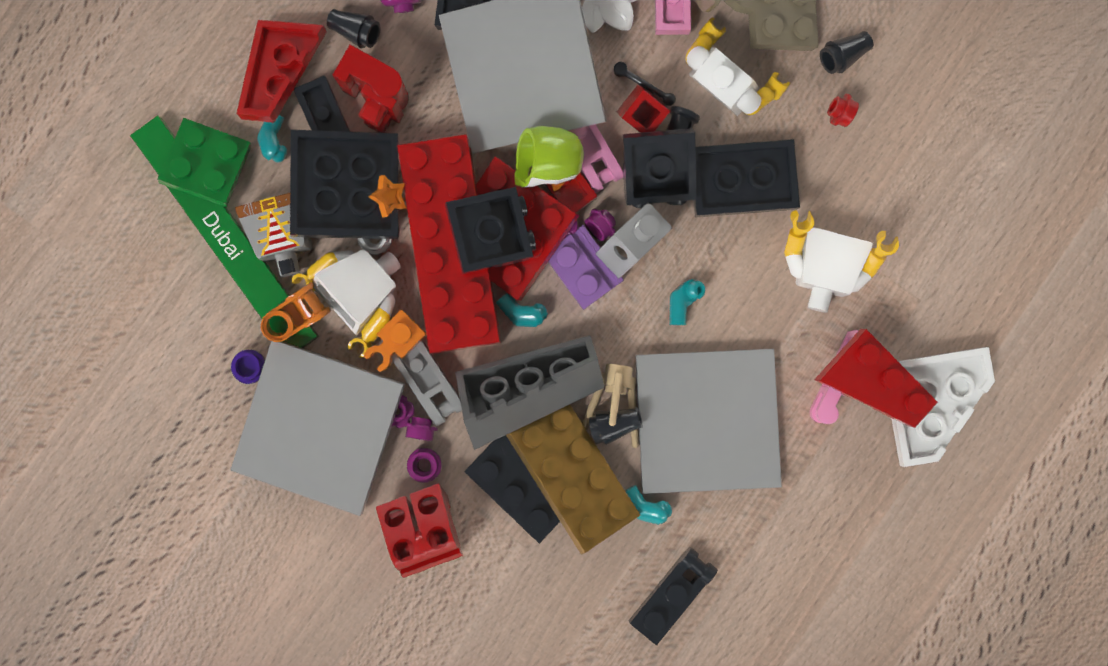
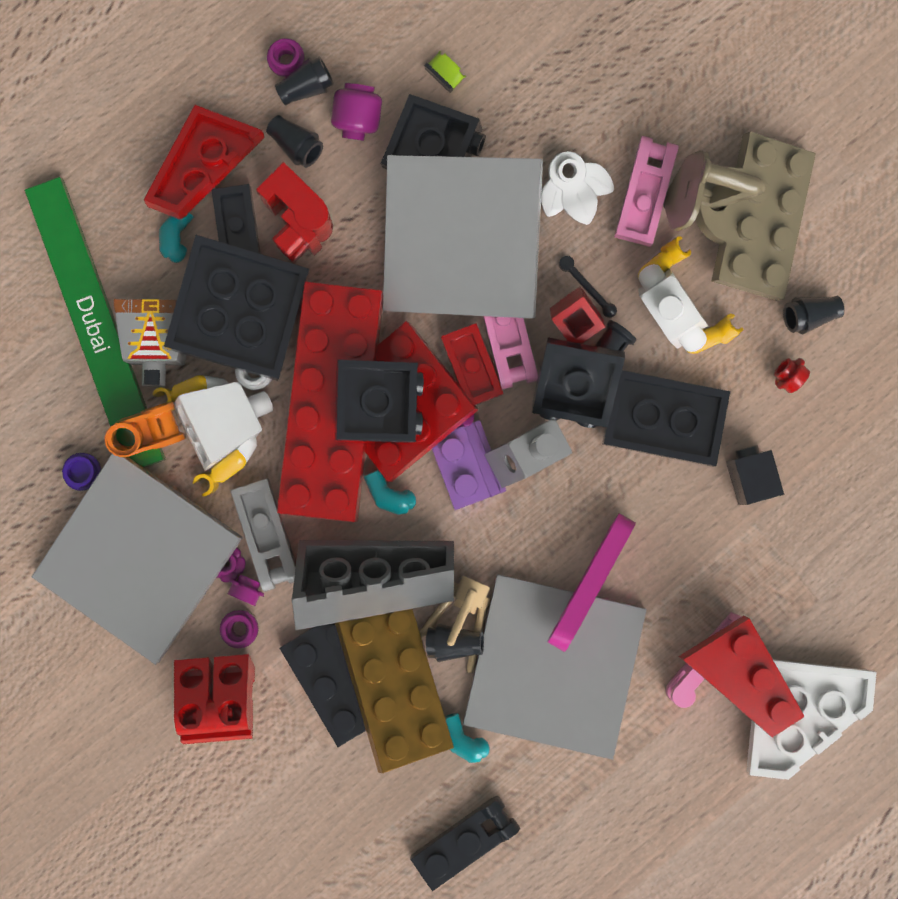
camera: 10 degrees right, 0 degrees up
(204, 162) = (95, 241): green plate -> none
(388, 196) = (279, 334): orange piece -> none
(398, 337) = (249, 486): orange plate -> none
(552, 154) = (467, 337): lime piece -> none
(600, 224) = (499, 424): magenta plate -> none
(682, 298) = (563, 528): teal arm -> none
(720, 338) = (591, 582): none -> dark pink beam
(832, 261) = (734, 534): white torso -> none
(835, 206) = (754, 476): none -> black brick

